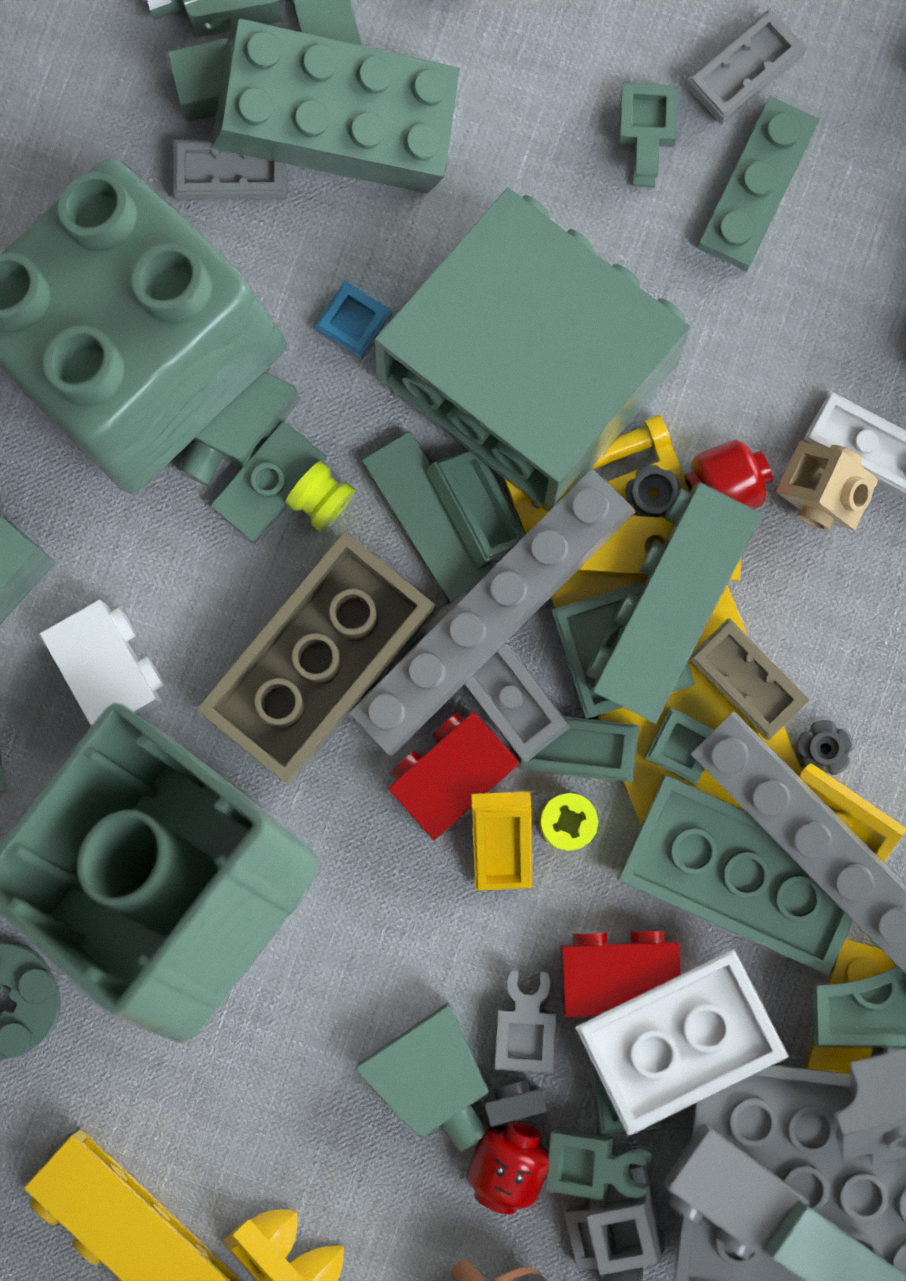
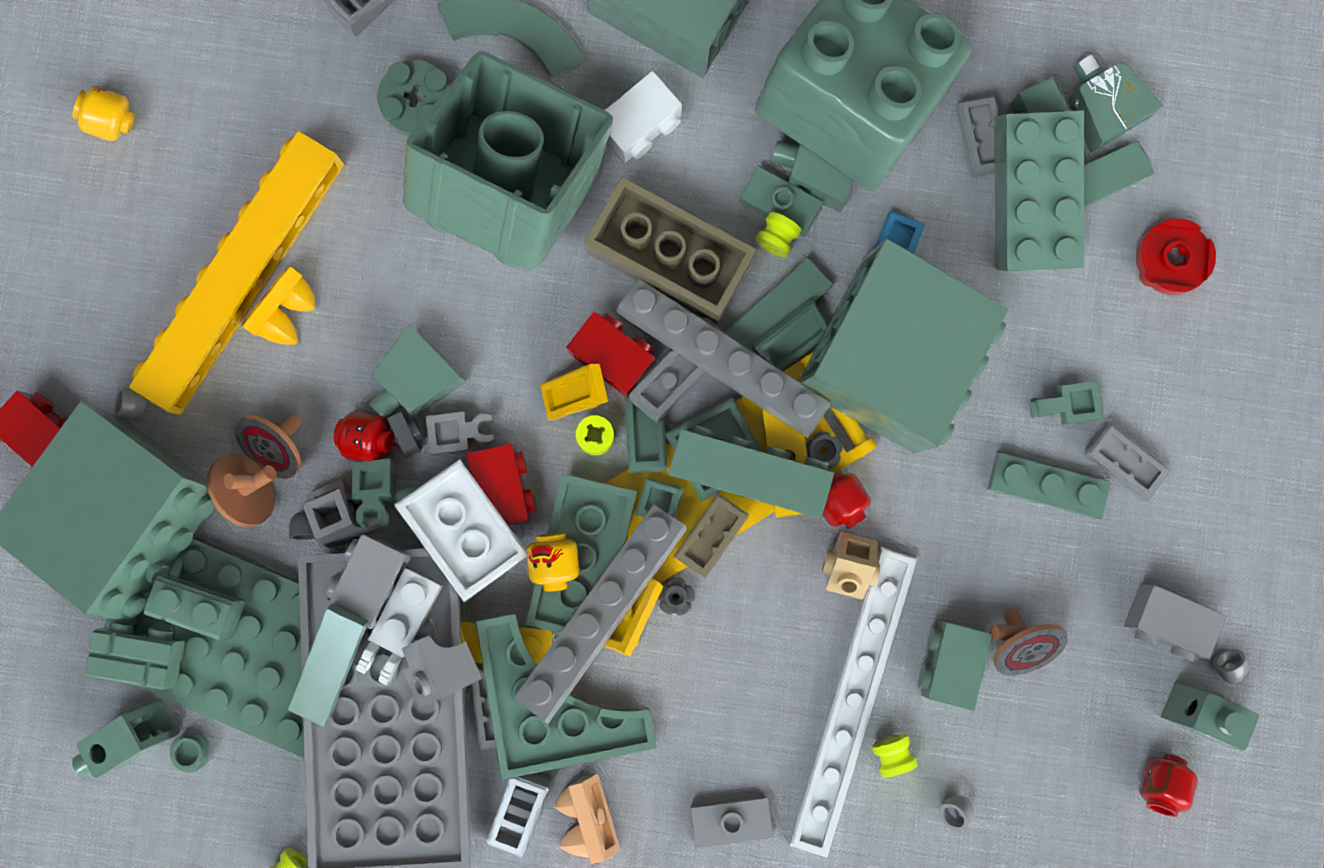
camera: 75 degrees right, 0 degrees up
(749, 916) = (552, 561): none -> yellow head
(799, 1155) = (400, 621): none -> white hinge

